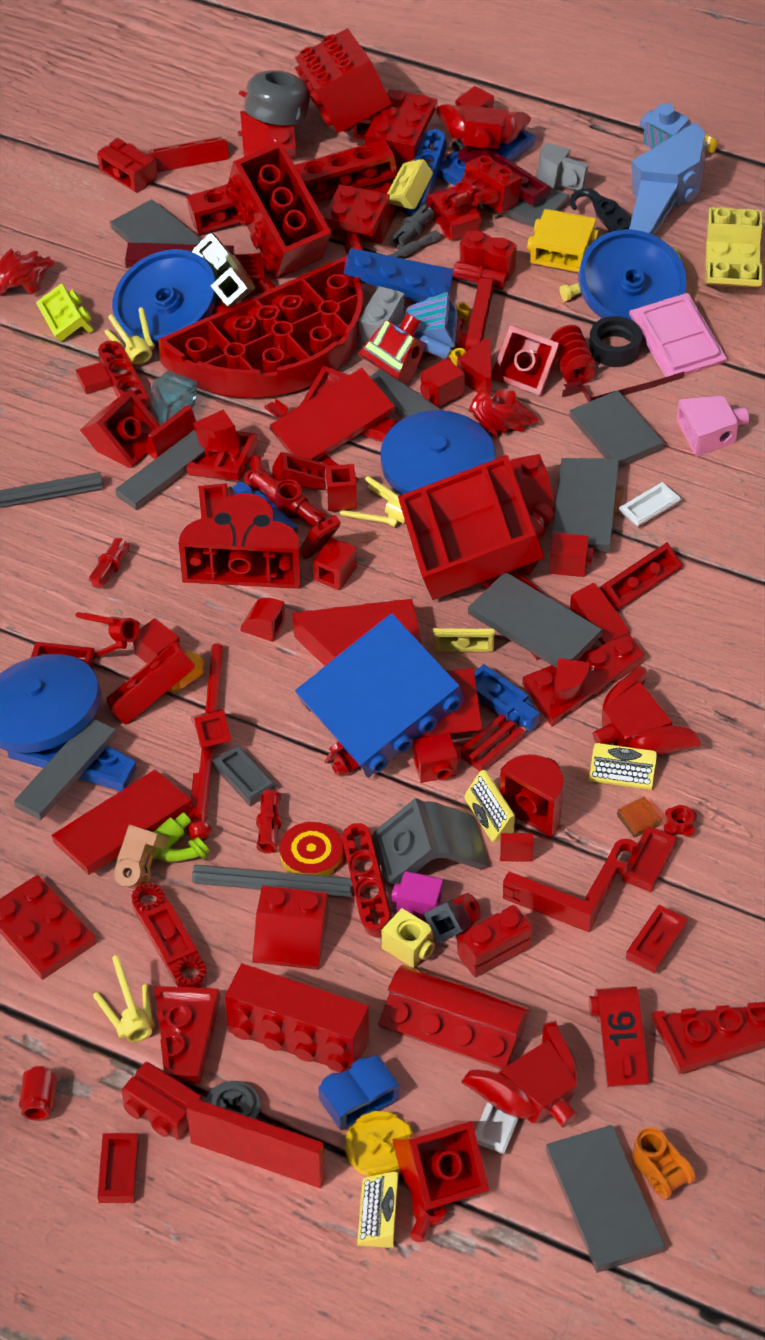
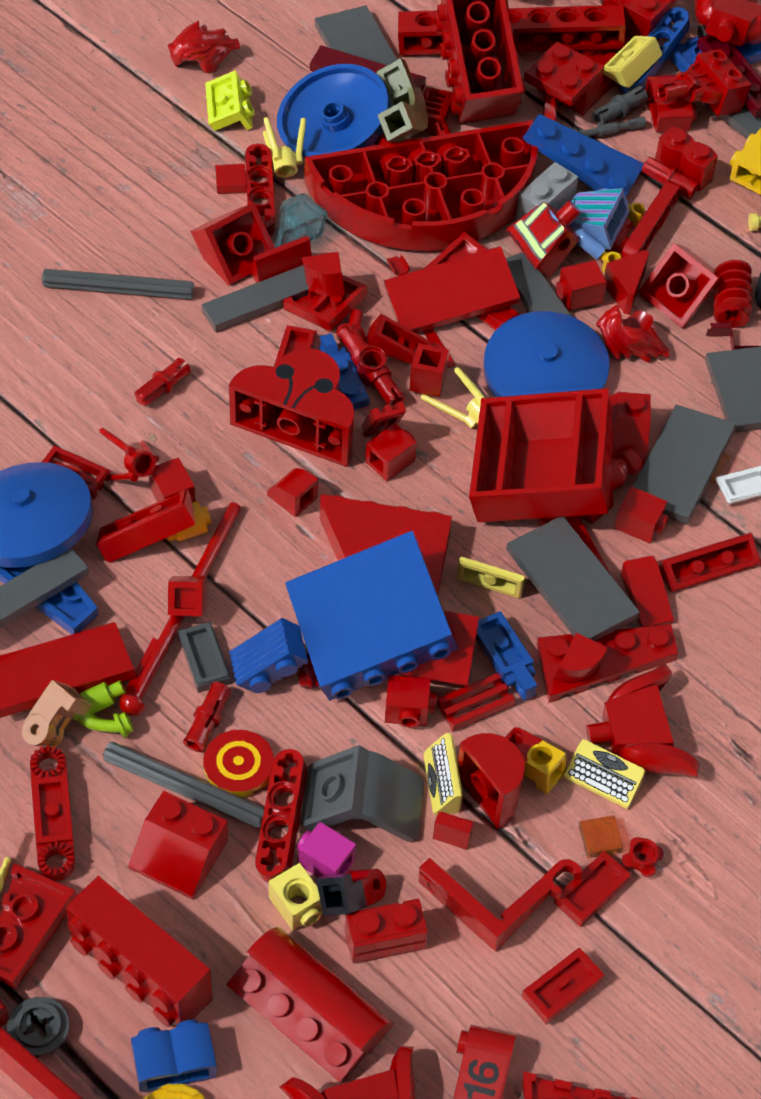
camera: 15 degrees right, 5 degrees up
(304, 755) = (268, 656): none -> blue brick
(573, 768) = (545, 762): none -> yellow leg

